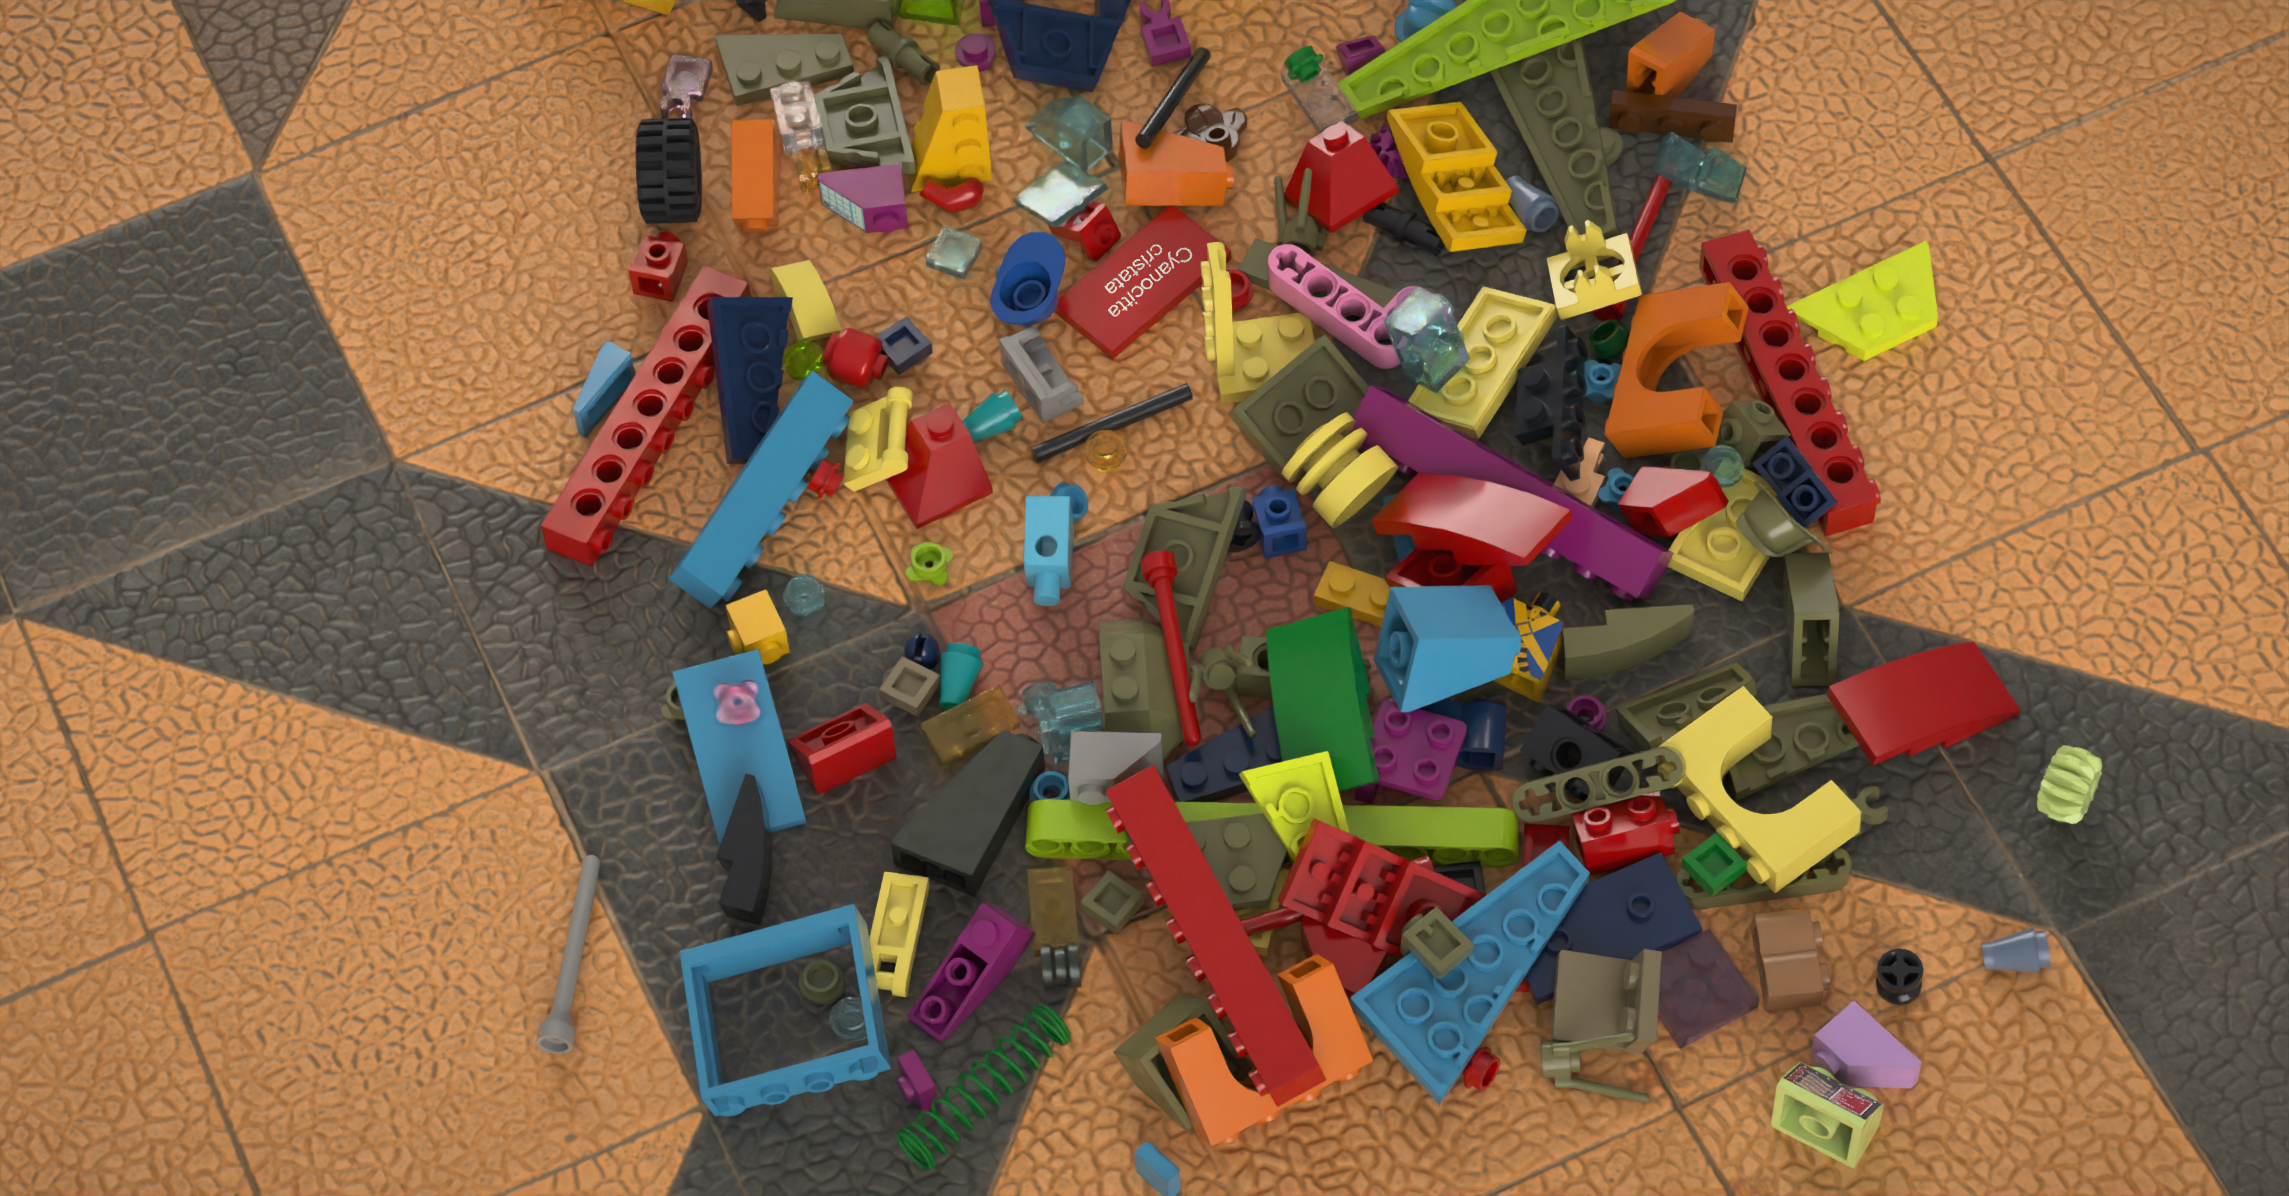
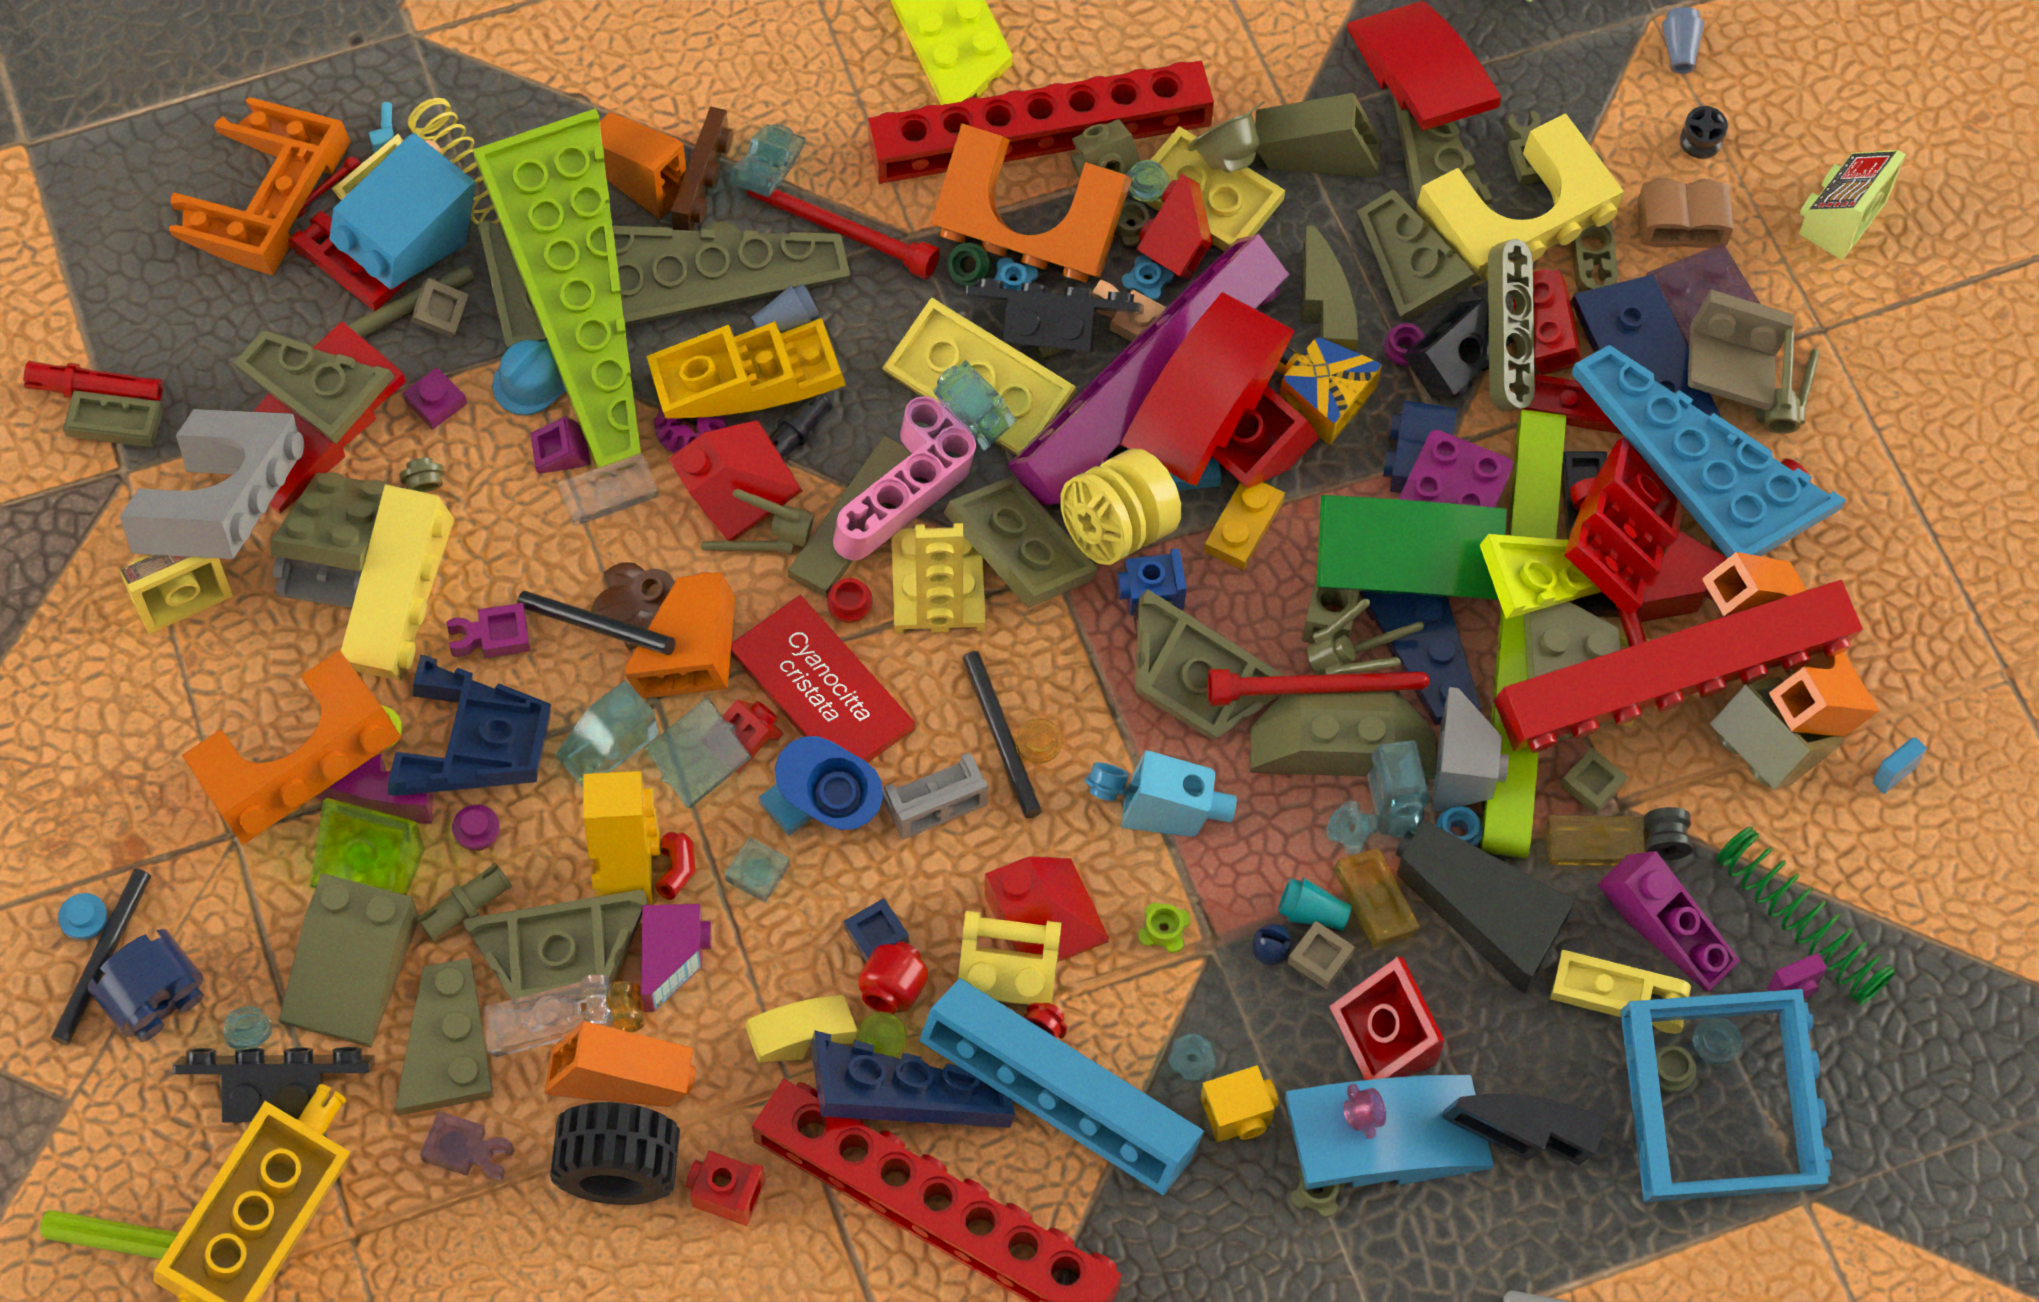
camera: 90 degrees left, 5 degrees up
(603, 387) = (883, 1252): dark azure slope -> none
(992, 416) = (983, 843): teal cone -> none
(1303, 64) = (581, 488): green plate -> none
(1435, 942) = (1691, 477): olive bracket -> none
(1443, 642) = (1358, 426): dark azure slope -> none
(1588, 294) = (864, 235): light yellow piece -> none
(1714, 864) = (1594, 249): green plate -> none
(1795, 482) = (1177, 120): dark blue slope -> none
(1863, 1052) = (1781, 171): lavender slope -> none

